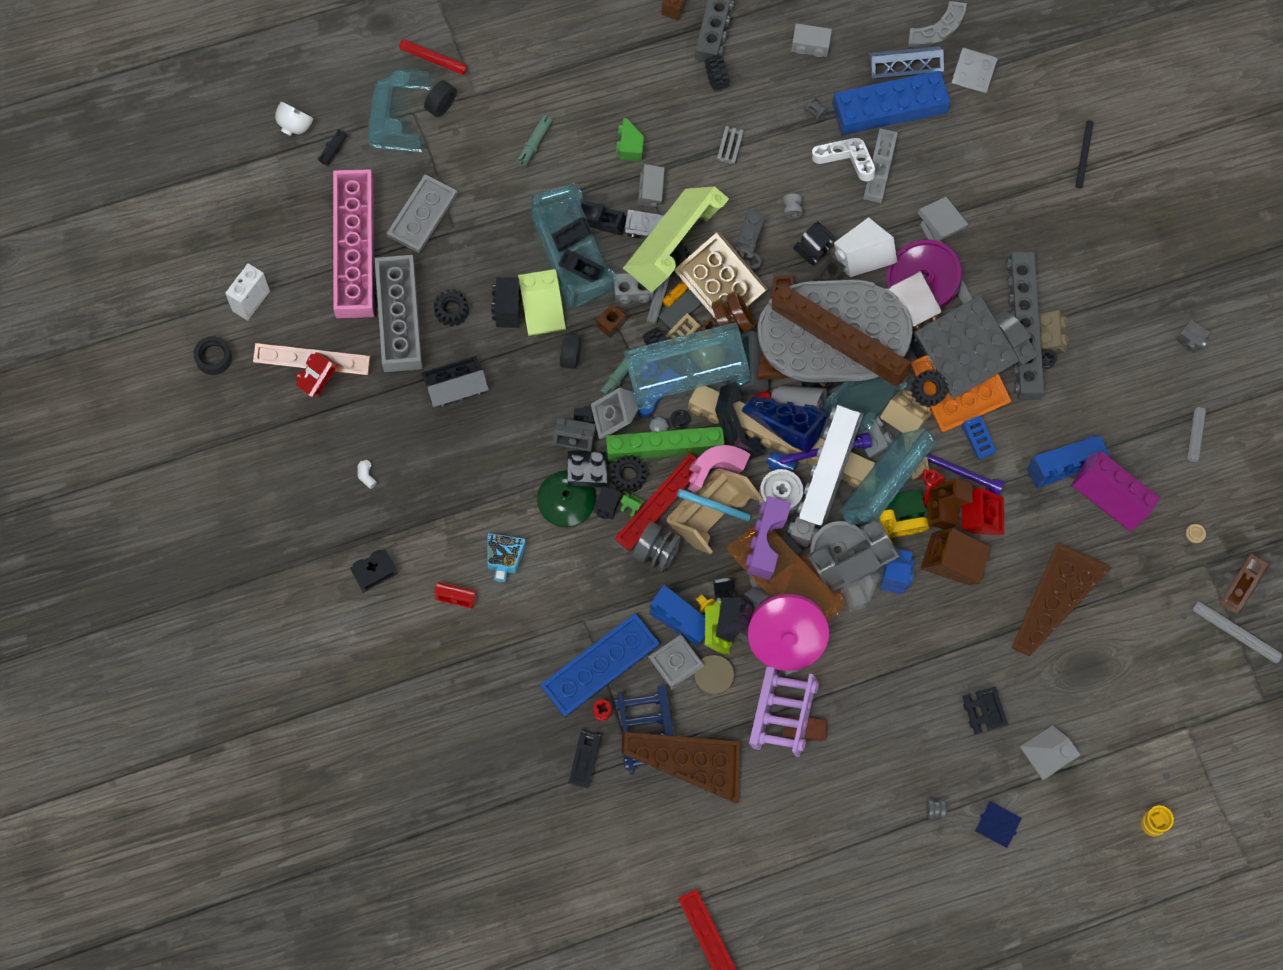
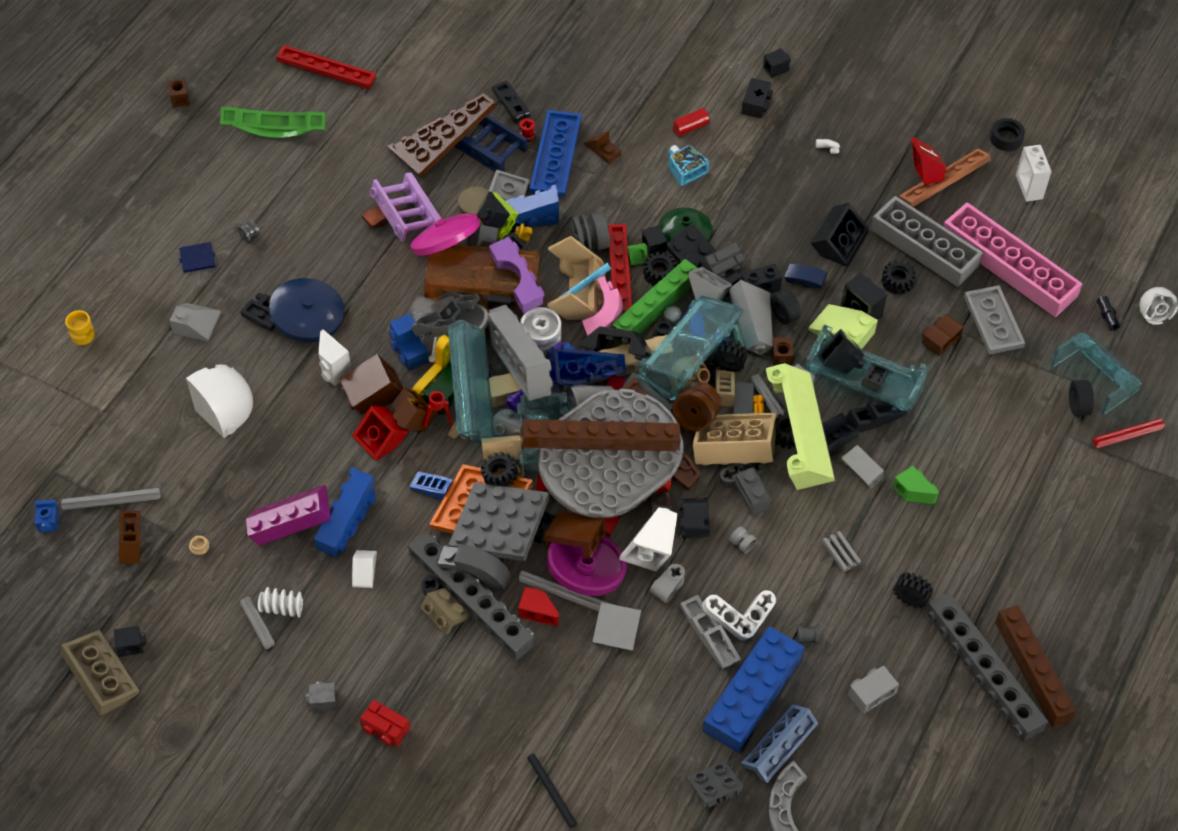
camera: 140 degrees right, 15 degrees down
(315, 592) = (776, 63): none -> black brick
(475, 233) = (942, 334): none -> reddish brown brick
(520, 370) = (809, 275): none -> dark blue slope
(531, 146) = (980, 425): sand green pin -> none
(552, 639) = (603, 147): none -> reddish brown slope
(563, 391) = (766, 278): none -> black brick
(603, 363) = (756, 316): none -> light grey slope
(819, 916) = (273, 123): none -> bright green piece
(881, 215) = (668, 583): none -> light grey piece
(951, 679) = (305, 308): none -> dark blue dish
(972, 602) = (333, 359): none -> white slope
(986, 278) = (537, 607): none -> red slope
(993, 485) = (389, 459): dark purple piece -> none
(1061, 588) = (274, 424): reddish brown wing -> none
(1083, 414) = (363, 568): none -> white slope
(1089, 641) = (221, 397): none -> white brick
(1164, 283) = (384, 723): none -> red brick
(1169, 431) = (281, 602): none -> white piece

